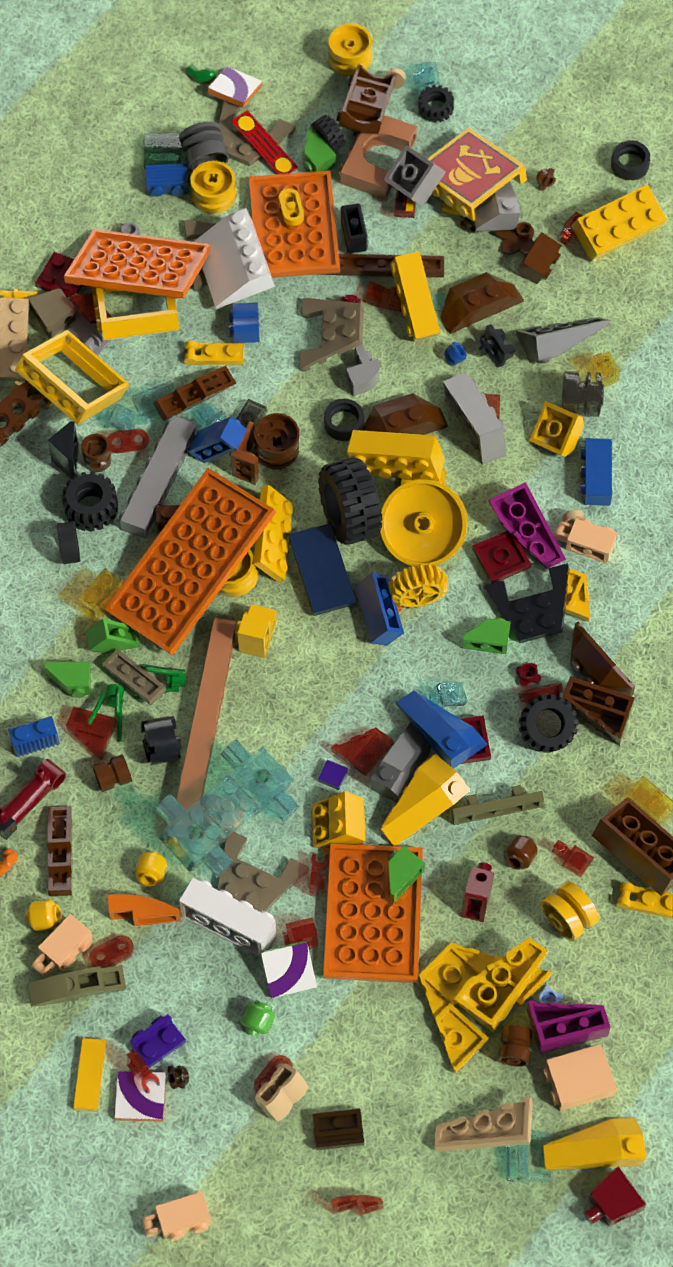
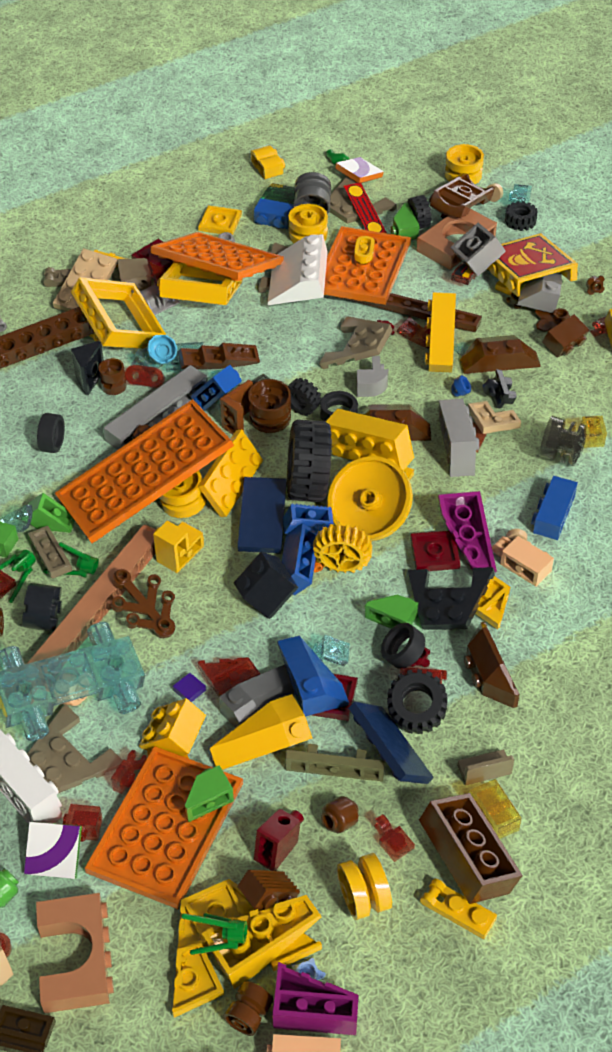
camera: 20 degrees right, 15 degrees down
(86, 486) = (87, 409): black tyre -> none
(86, 652) = (20, 518): none -> clear light blue tile
(99, 594) = (54, 477): clear yellow brick -> none
(109, 204) = (220, 220): none -> yellow tile
(126, 104) = (267, 162): none -> yellow brick
(136, 405) = (162, 349): none -> medium azure hair
(214, 353) = (251, 336): yellow plate -> none
(245, 322) = (287, 319): blue brick -> none
(256, 705) = (144, 605): none -> reddish brown plant
(307, 417) = (304, 396): none -> black tyre
(346, 1017) = (90, 982): none -> nougat arch
(354, 228) = (411, 277): black brick -> none
(362, 648) = (266, 584): none -> black slope
(377, 561) = (311, 516): none -> blue brick
(483, 988) = (233, 930): none -> green plant
(491, 942) = (267, 888): none -> reddish brown brick
(500, 667) = (411, 651): none -> black tyre
(501, 388) = (491, 421): none -> tan plate
(539, 771) = (390, 743): none -> dark blue piece
(550, 342) = (551, 397): wedge -> none
(557, 429) = (530, 463): yellow slope -> none
(600, 707) = (477, 704): reddish brown wedge -> none
(627, 764) = (485, 767): none -> dark tan panel

